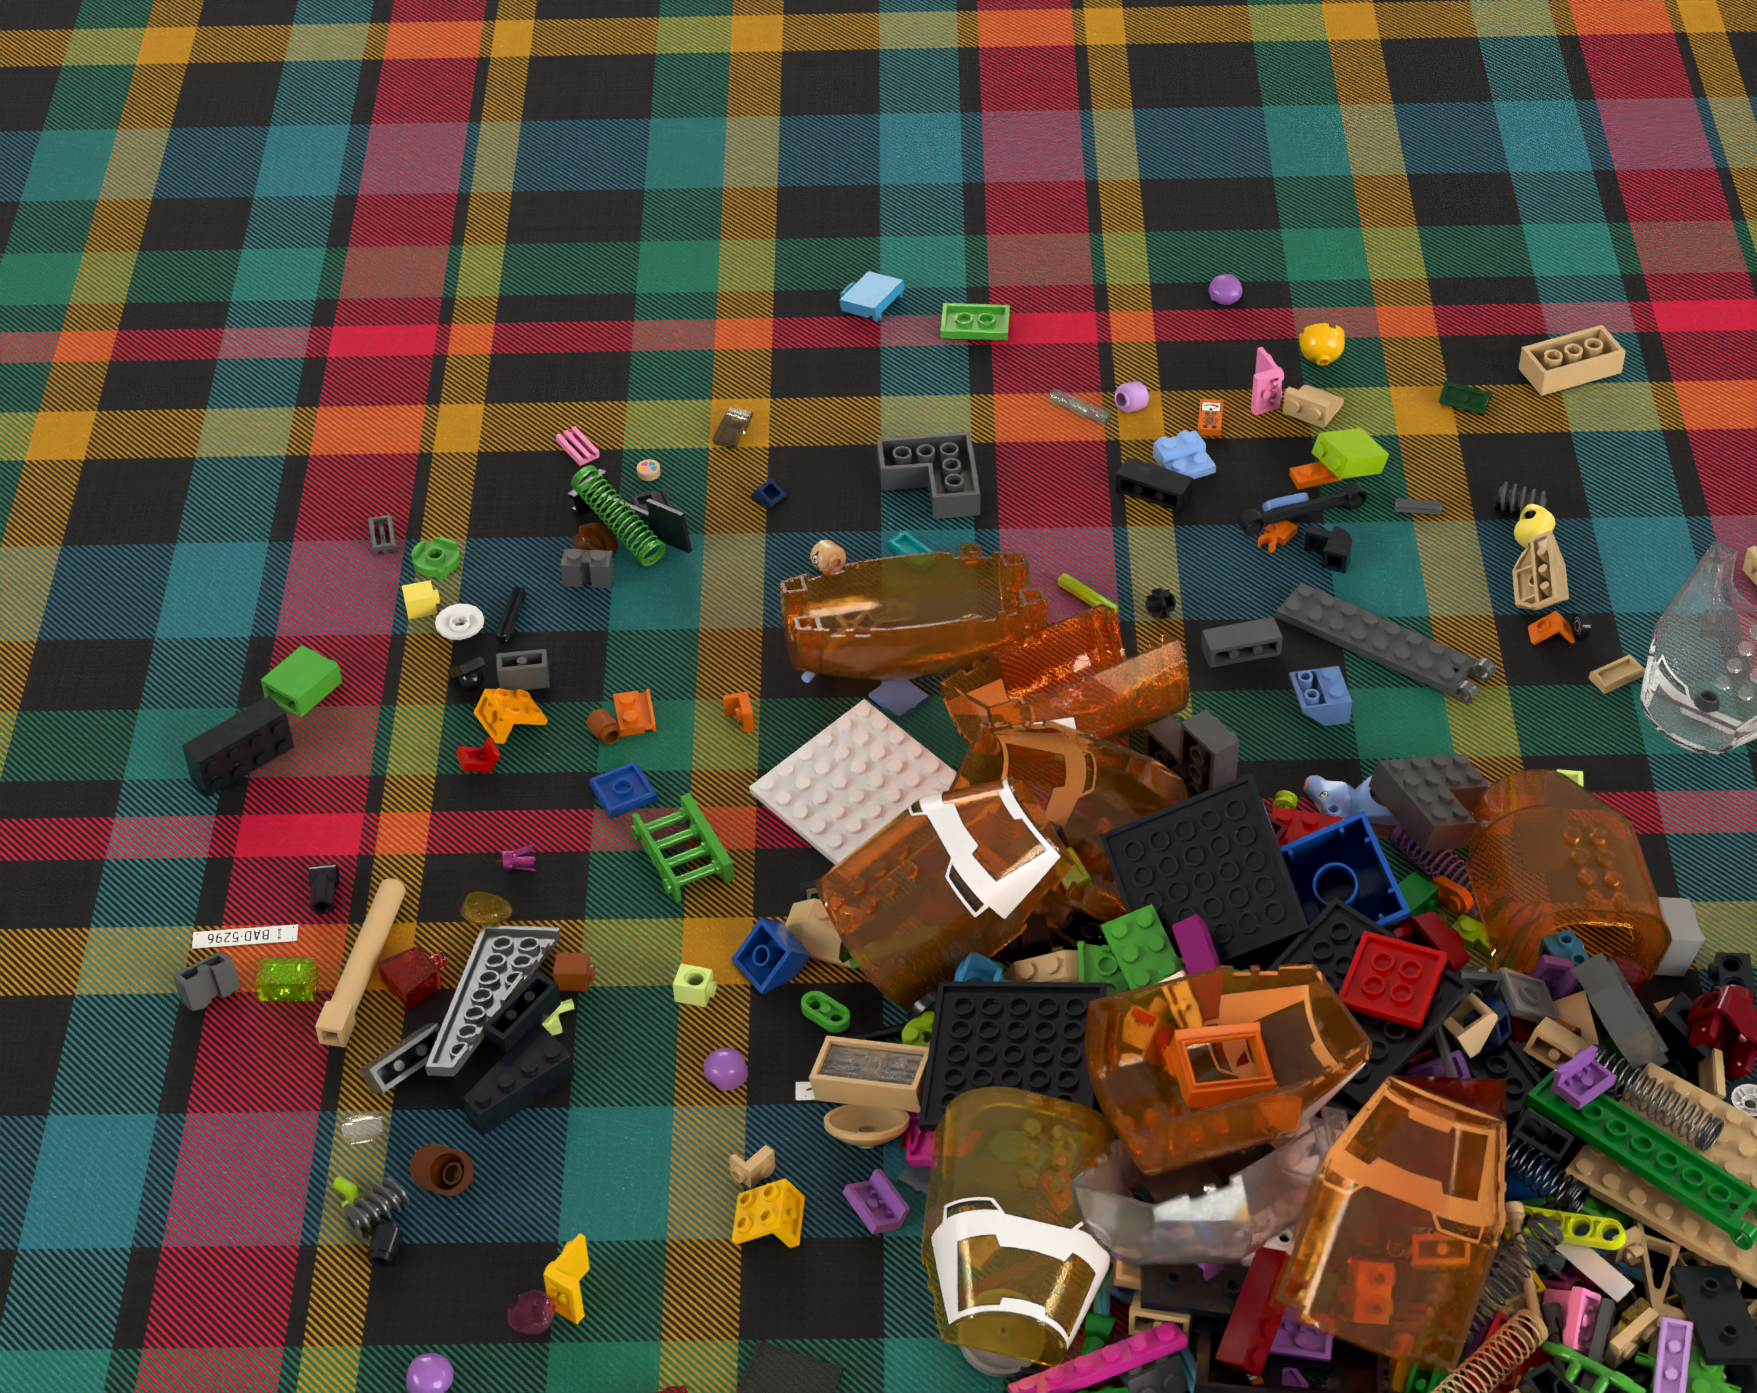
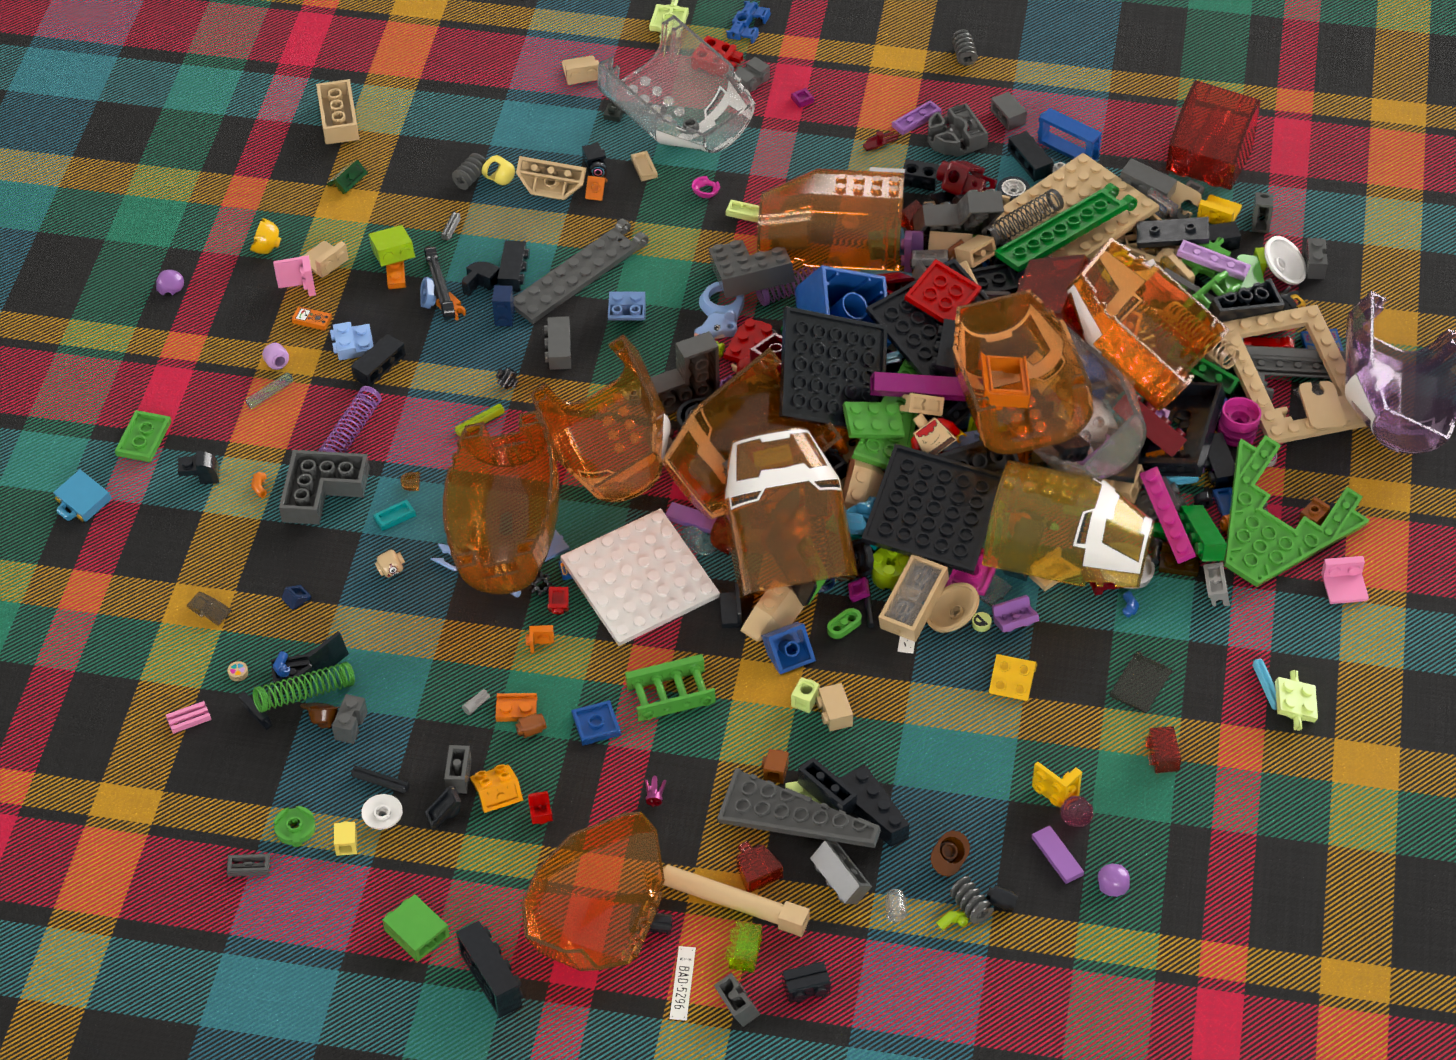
camera: 80 degrees left, 5 degrees up
(241, 1049) = (806, 982): none -> black brick
(303, 806) = (596, 894): none -> clear orange windscreen
(467, 1305) = (1057, 854): none -> medium lavender tile
(485, 908) = (701, 815): clear yellow hat -> none
(635, 674) = (471, 705): none -> light grey piece
(651, 493) = (280, 666): none -> blue arm
(678, 1020) = (835, 707): none -> tan brick
(725, 1068) = (881, 686): medium lavender hair -> none
(755, 1169) = (974, 677): tan bracket -> none
(803, 718) = (558, 600): none -> red bracket
(825, 693) = (542, 587): none -> black gear
(862, 1168) = (981, 622): none -> yellowish green tile
(888, 1019) = (858, 589): none -> magenta tile
(927, 426) = (256, 485): none -> orange arm
(929, 1352) = (1132, 604): none -> blue arm
(933, 372) = (203, 465): none -> black brick
(1089, 488) = (362, 397): none -> medium lavender piece
(1277, 571) = (503, 305): none -> dark blue brick
(1364, 573) = (513, 264): none -> black brick
(1582, 1078) = (1015, 238): medium lavender bracket -> none
(1604, 735) = (703, 181): none -> dark pink piece
(1605, 615) = (593, 153): none -> black brick

